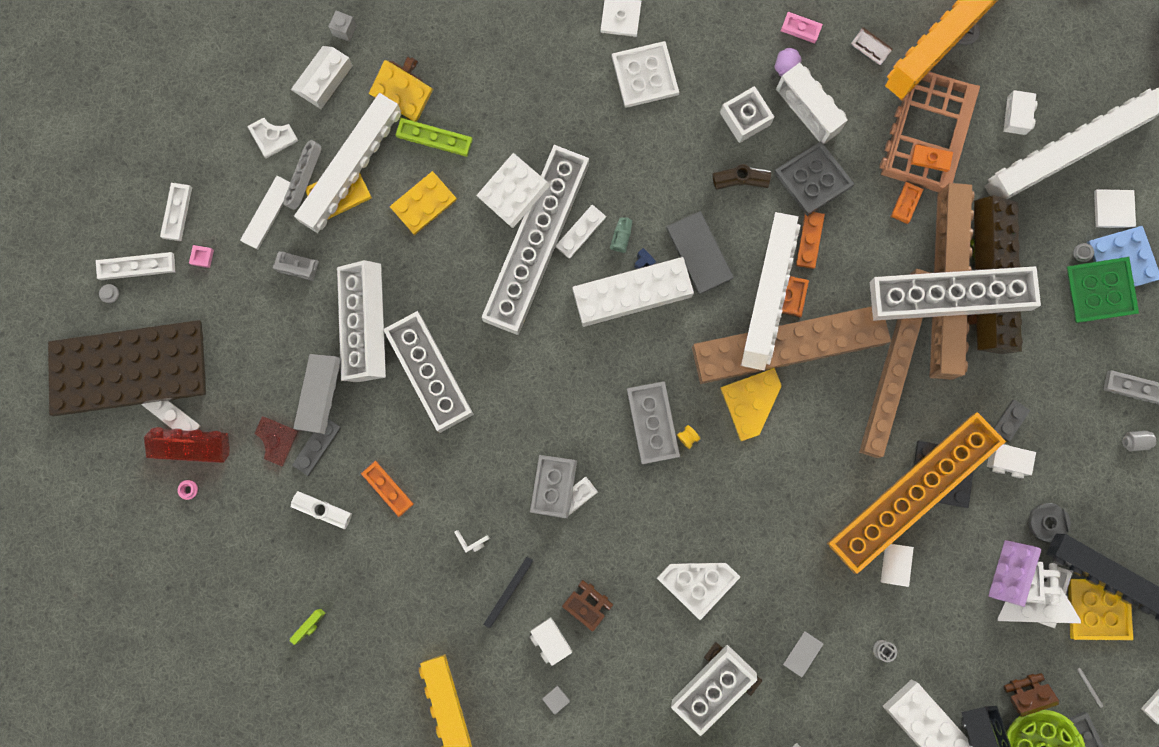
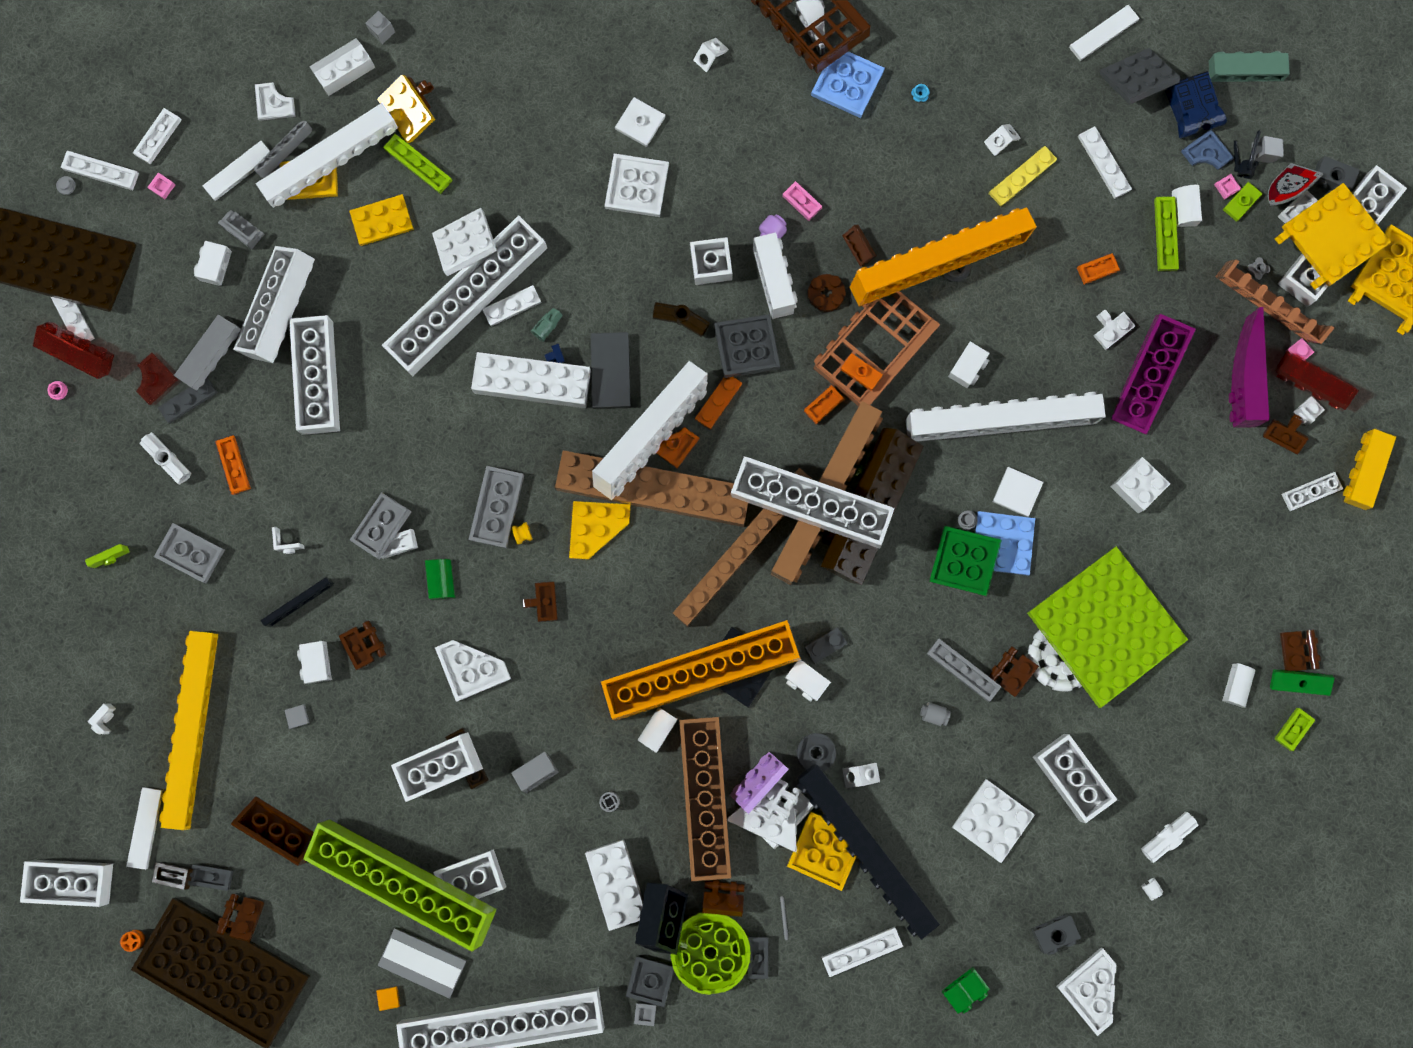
camera: 25 degrees right, 0 degrees up
(283, 308) = (212, 263): none -> white brick
(384, 589) = (189, 553): none -> light grey plate
(631, 512) = (439, 579): none -> green brick
(737, 491) = (544, 601): none -> reddish brown plate
(857, 110) = (819, 300): none -> reddish brown plate
(972, 610) = (705, 799): none -> medium nougat brick
(1102, 523) = (863, 774): none -> white bracket
(1129, 28) = (1113, 329): none -> white plate

